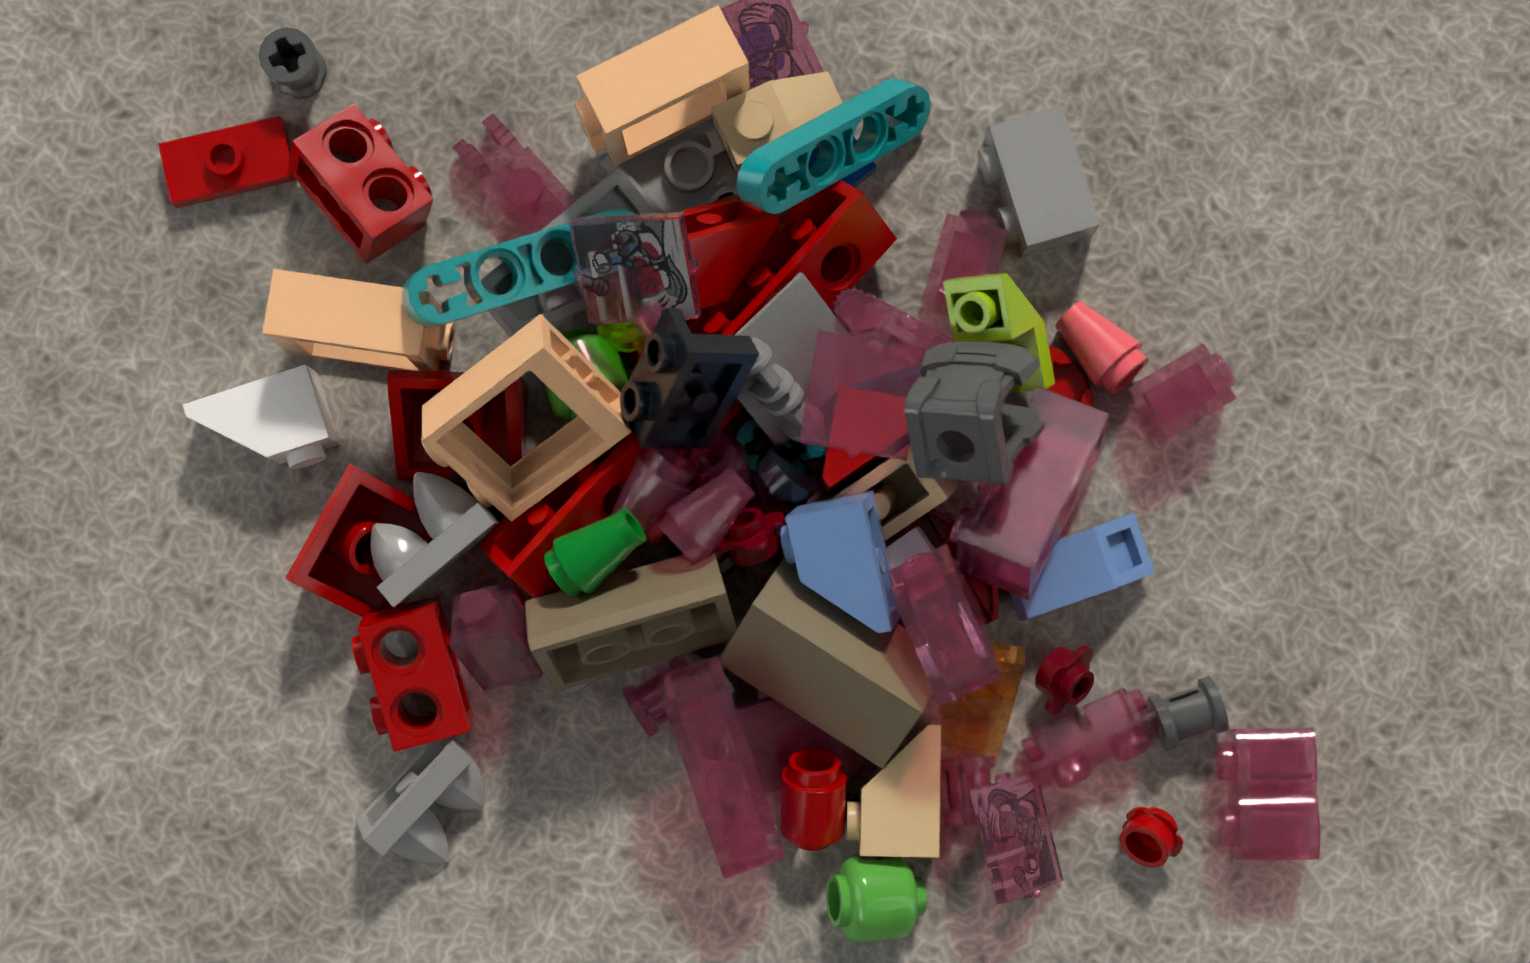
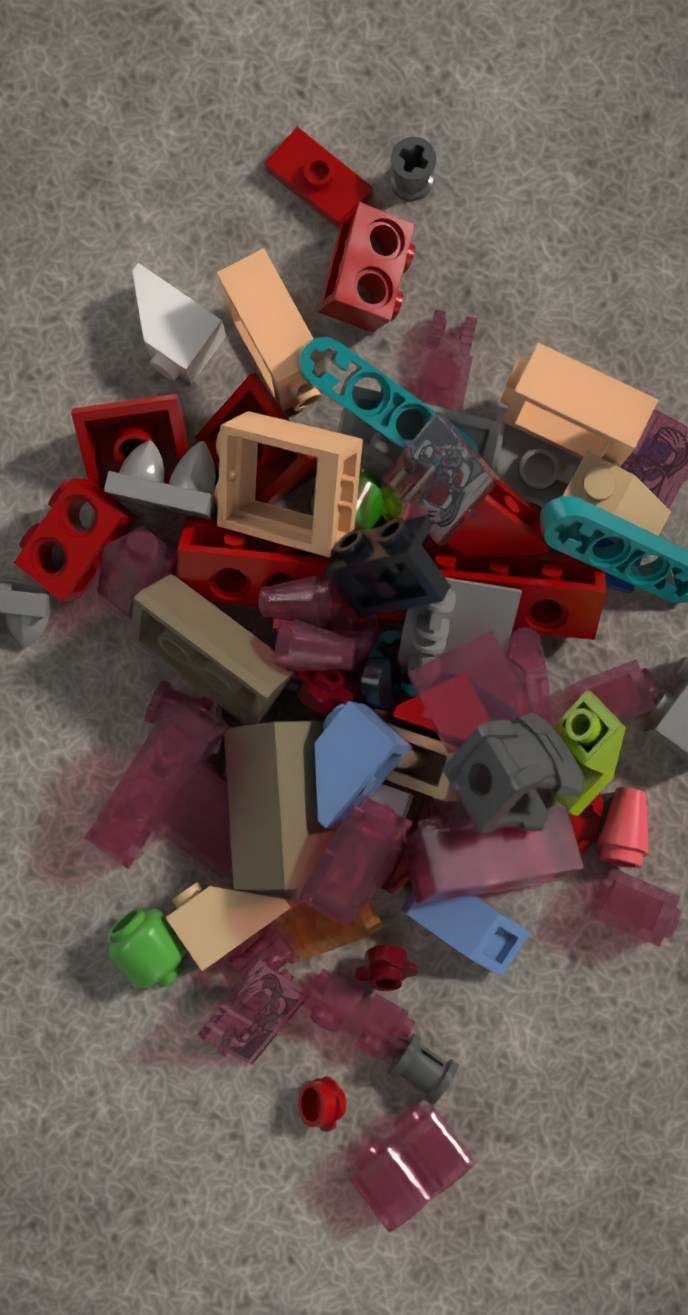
camera: 55 degrees right, 0 degrees up
(593, 552) = (231, 592): green cone -> none
(813, 799) = (181, 858): red brick -> none

